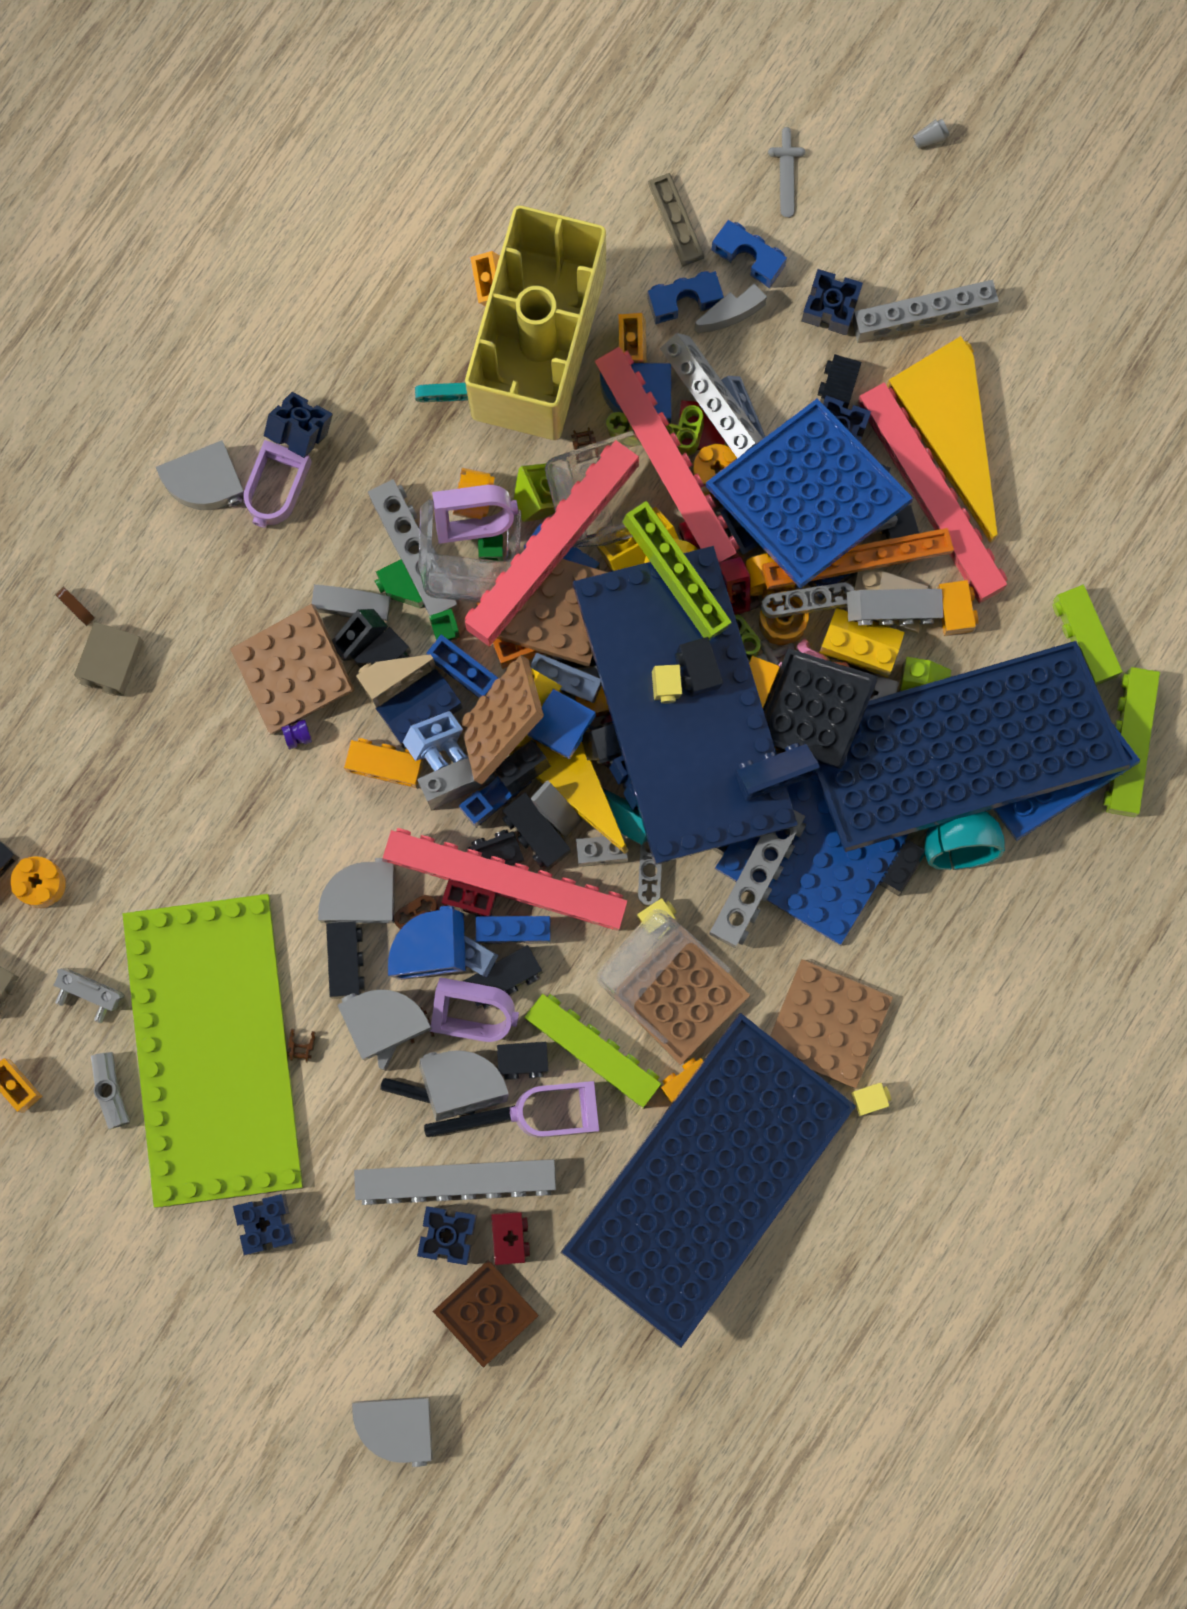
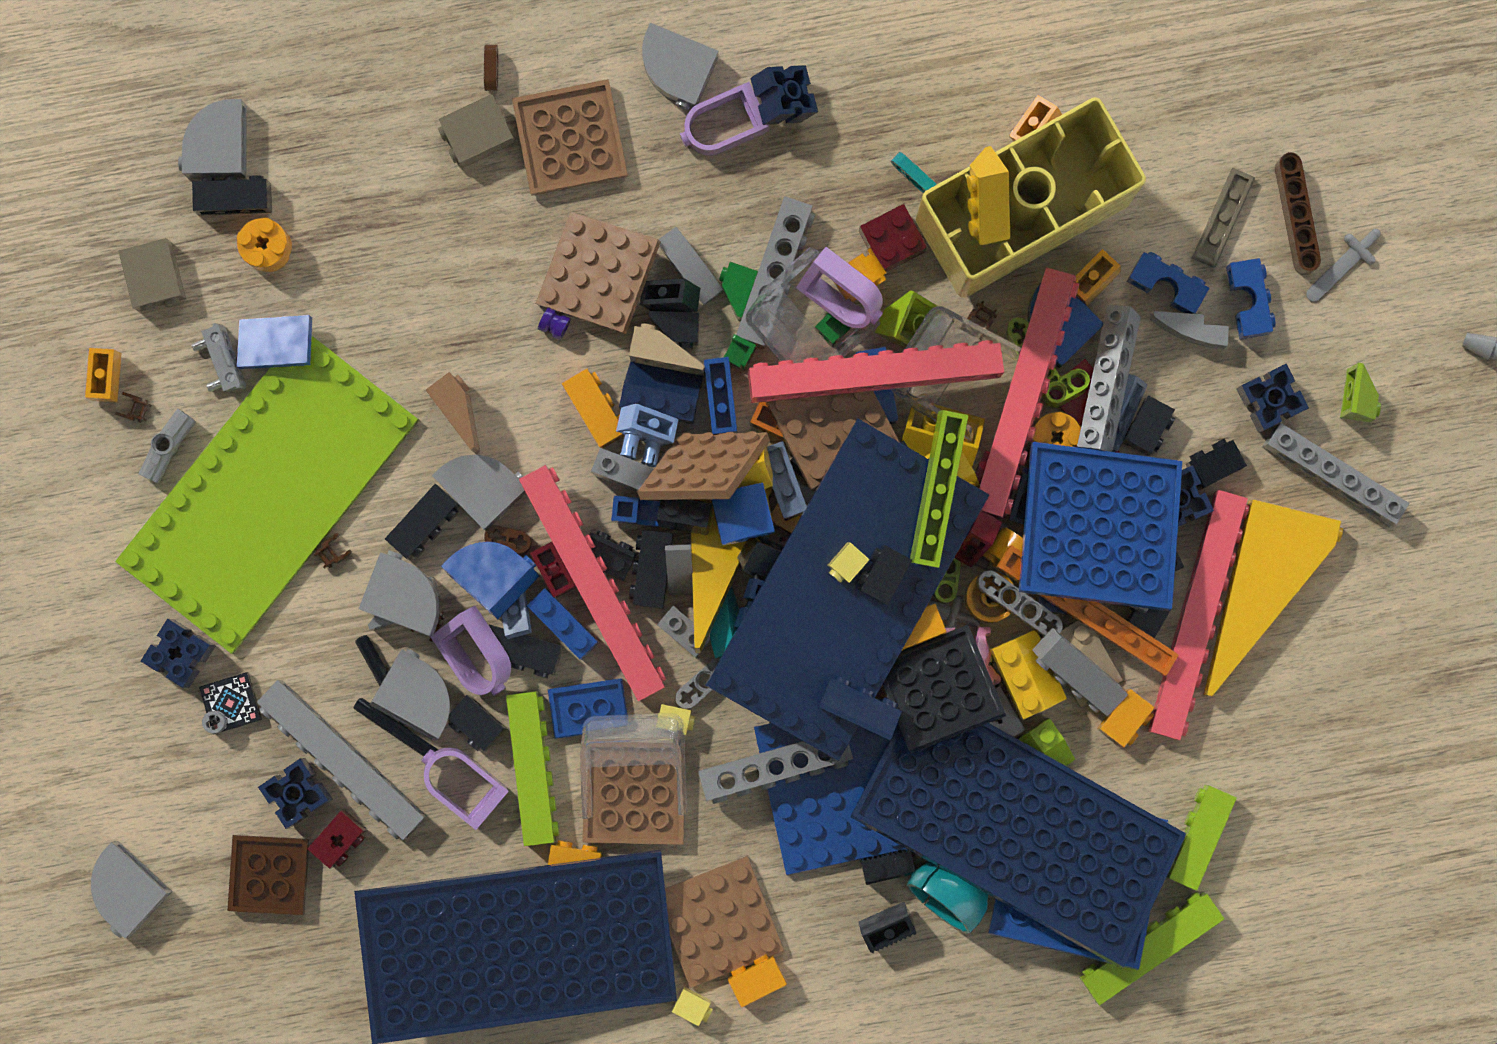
camera: 50 degrees right, 5 degrees up
(62, 1095) = (131, 416): none -> reddish brown piece
(113, 941) = (274, 342): none -> tile
(178, 599) = (569, 137): none -> medium nougat plate
(281, 855) = (456, 405): none -> medium nougat slope
(336, 1222) = (234, 699): none -> black tile
(346, 1242) = (221, 725): none -> light grey bush
(470, 446) = (893, 238): none -> dark red brick
(514, 339) = (989, 198): none -> yellow slope
(578, 975) = (576, 703): none -> blue tile
(719, 158) = (1300, 202): none -> reddish brown beam
(770, 401) = (1149, 425): none -> black brick
(886, 244) = (1359, 396): none -> lime slope
(895, 1035) = (757, 980): none -> light orange brick
(945, 907) = (887, 927): none -> black brick

